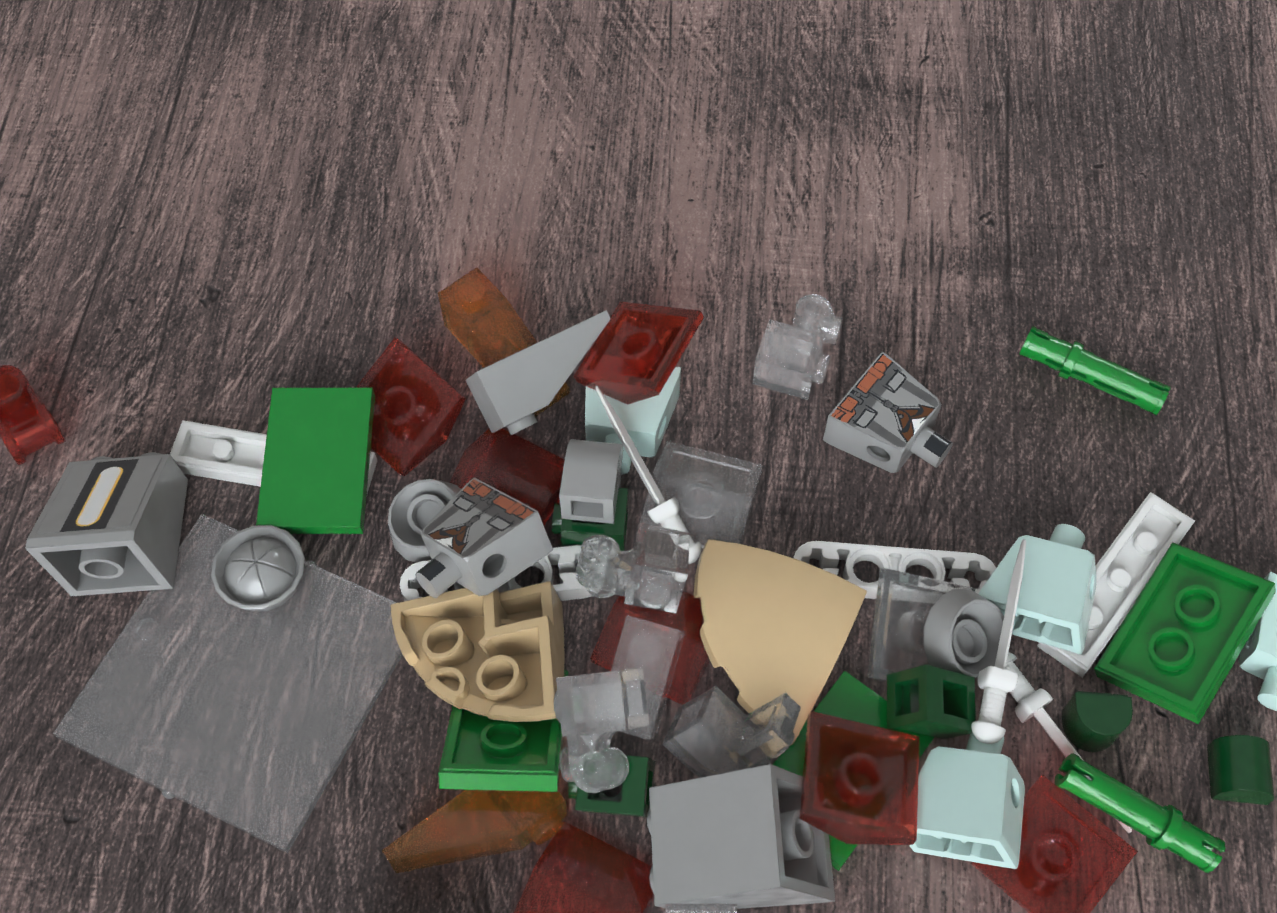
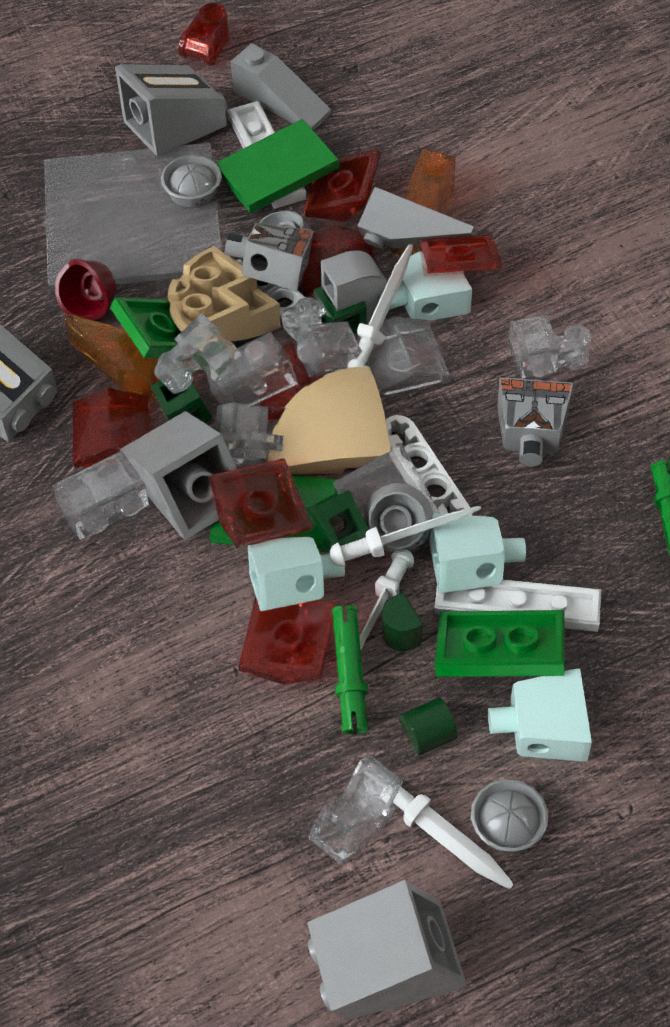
camera: 60 degrees right, 5 degrees down
(166, 389) = (278, 89): none -> light grey slope
(345, 803) = (85, 289): none -> dark red helmet

